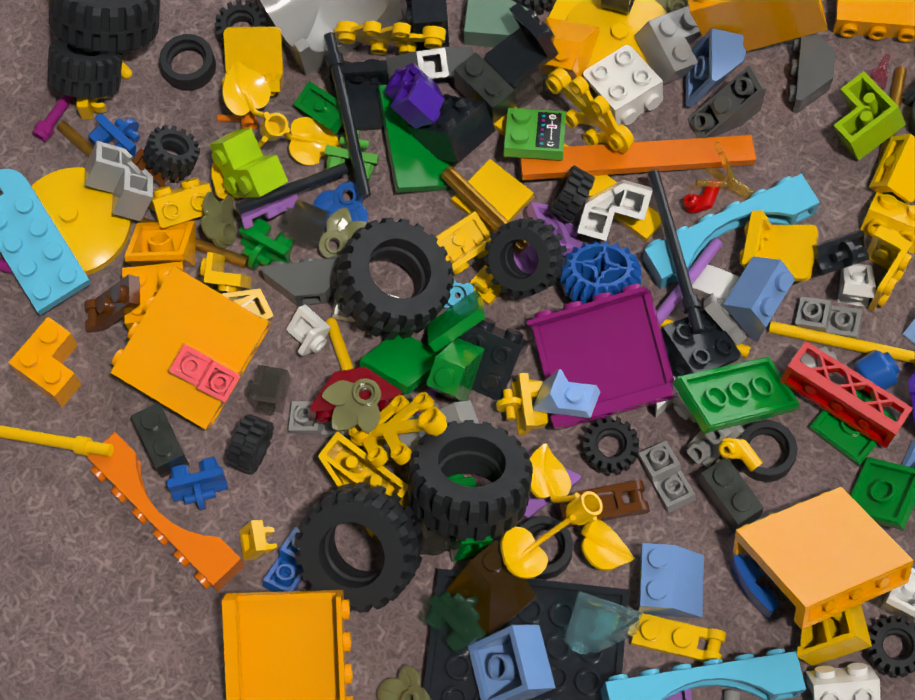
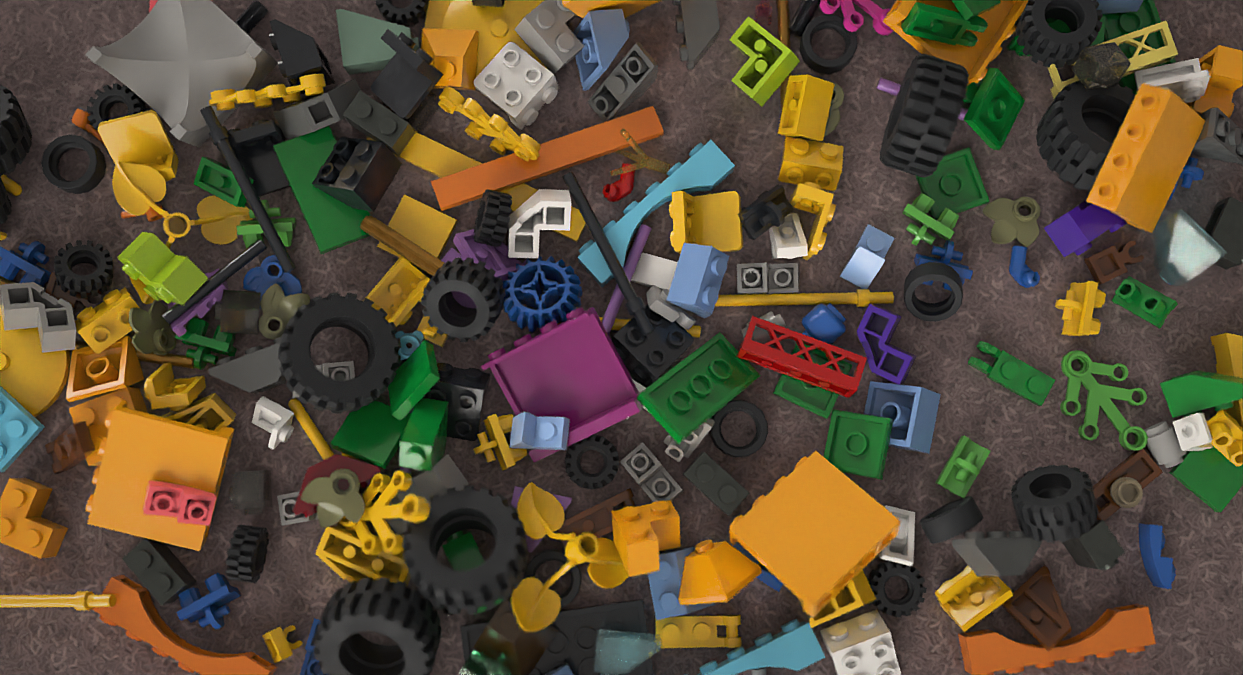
camera: 20 degrees left, 15 degrees up
(206, 27) = (81, 120): none -> orange hand
(415, 96) = (311, 154): dark purple brick -> none
(535, 134) = (441, 160): bright green plate -> none
(649, 520) = (644, 532): none -> light orange brick
(710, 572) = (715, 573): none -> light orange slope
(739, 449) = (715, 442): yellow arm -> none

